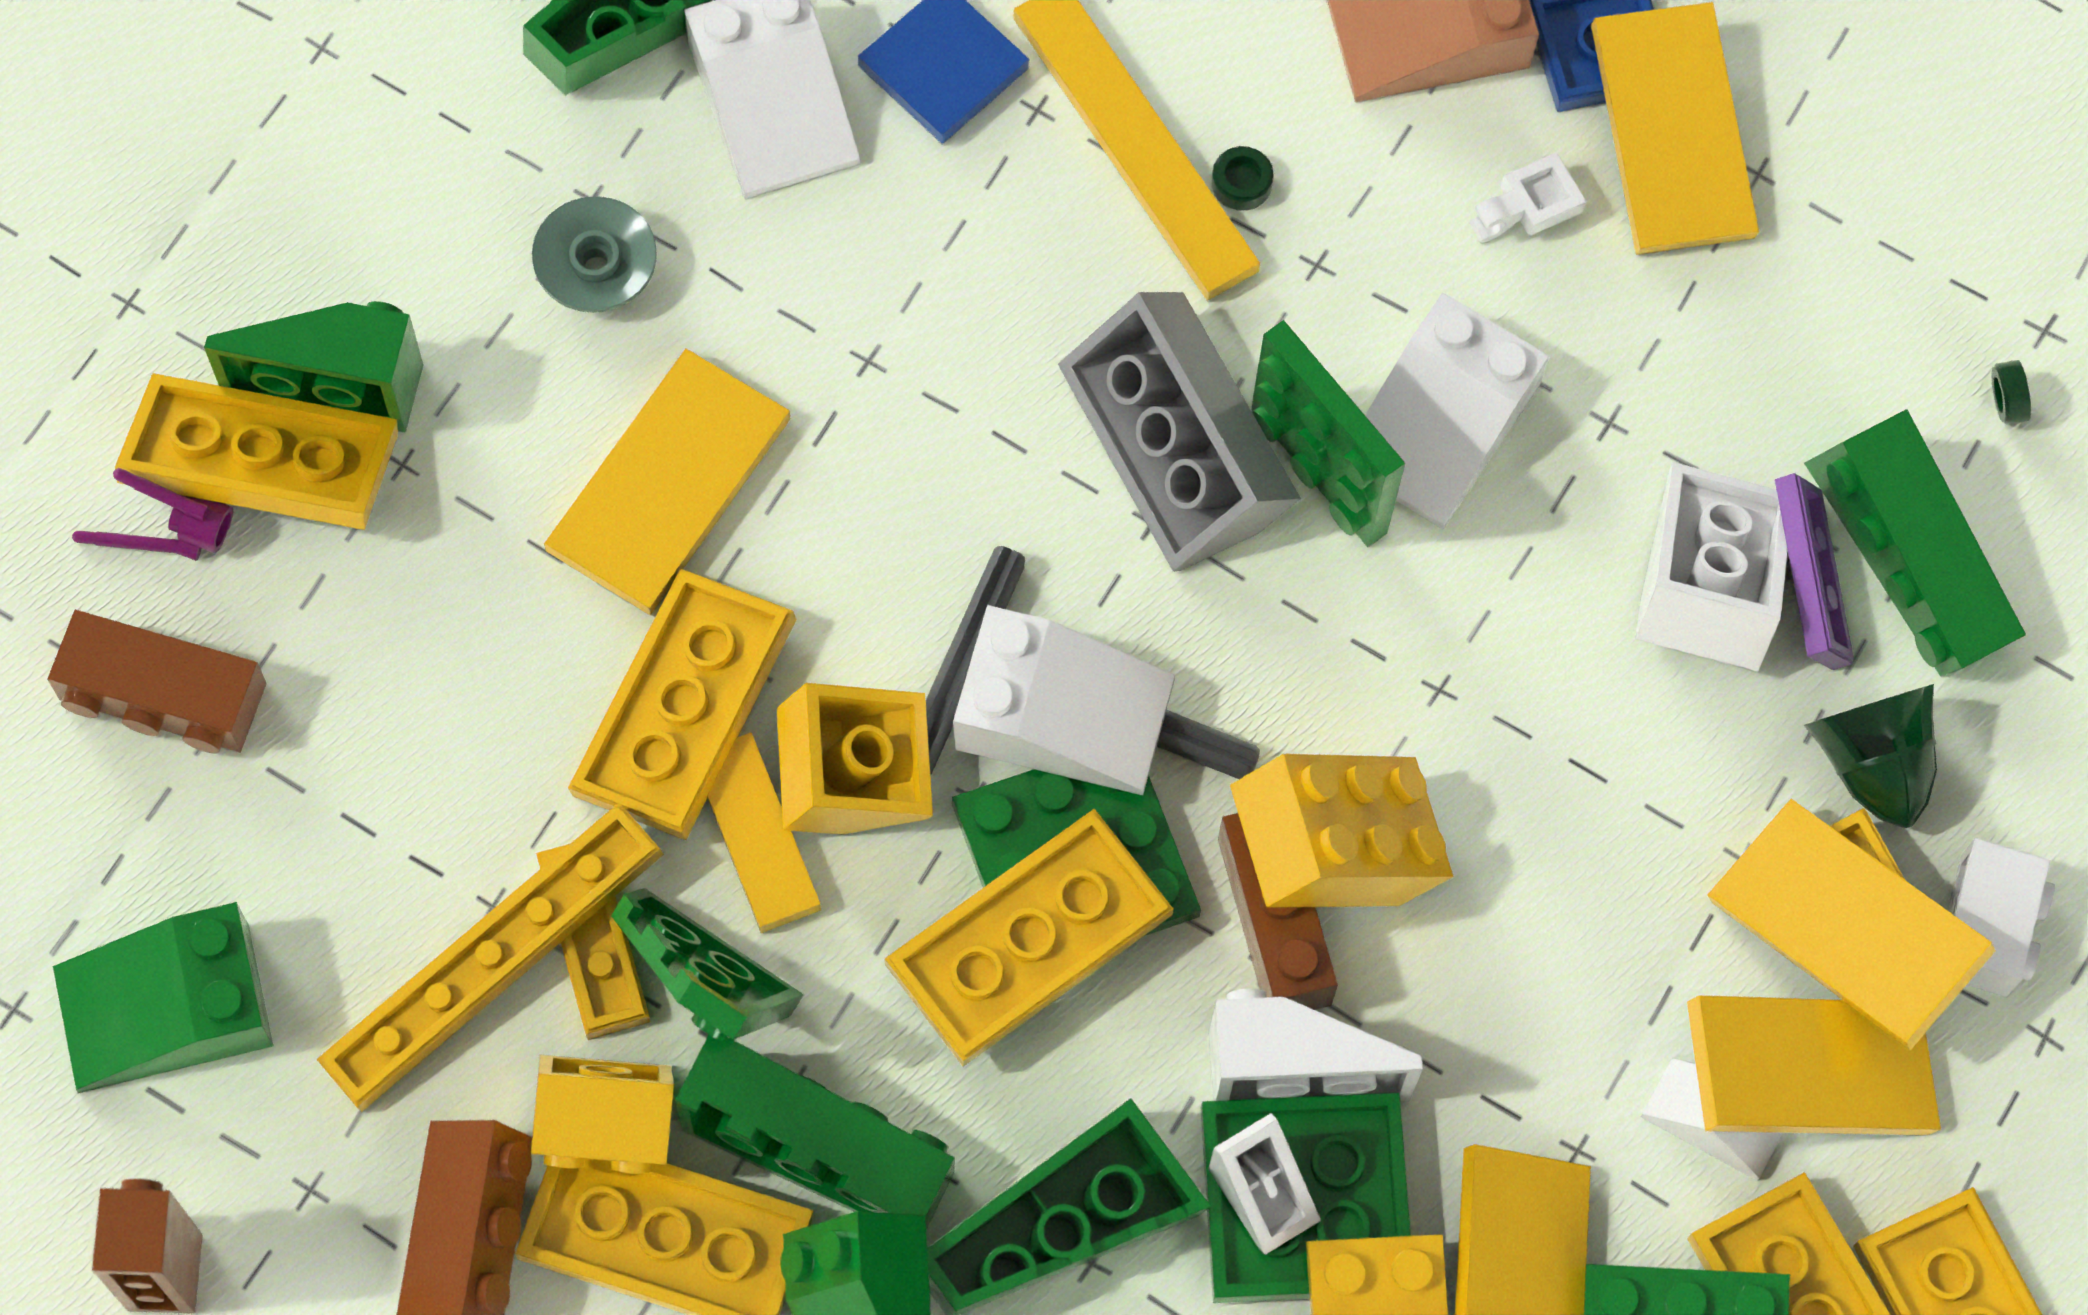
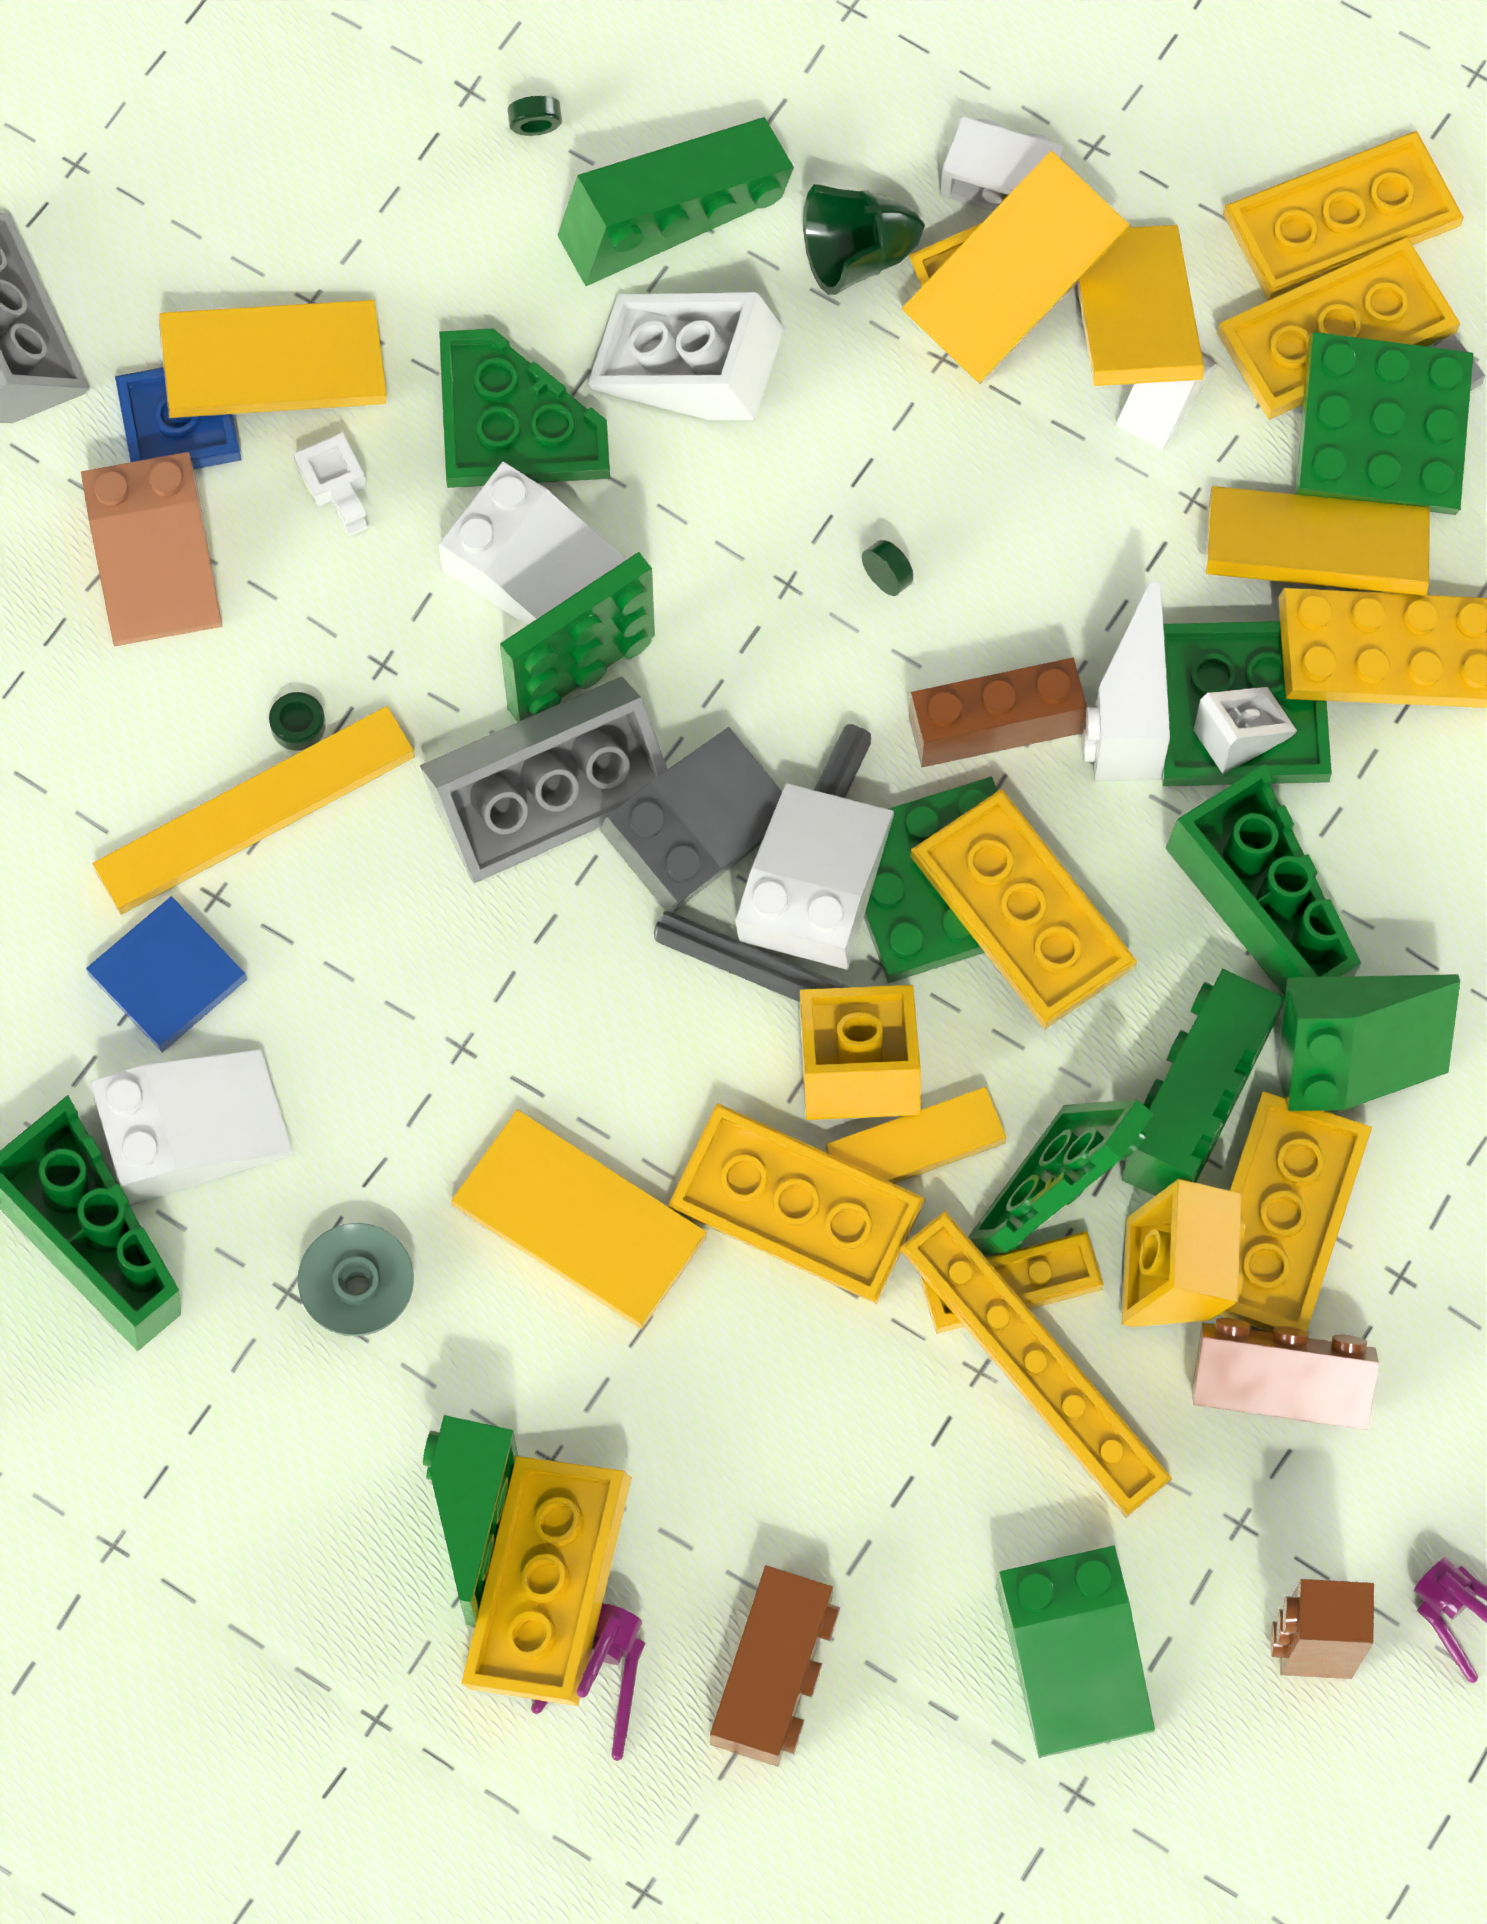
camera: 85 degrees left, 0 degrees up
(1131, 580) = (694, 820): none -> dark grey slope
(1341, 830) = (942, 644): yellow brick -> none
(1458, 791) = (887, 567): none -> dark green tile
(1622, 380) = (512, 414): none -> green plate
(1814, 572) = (695, 277): medium lavender tile -> none

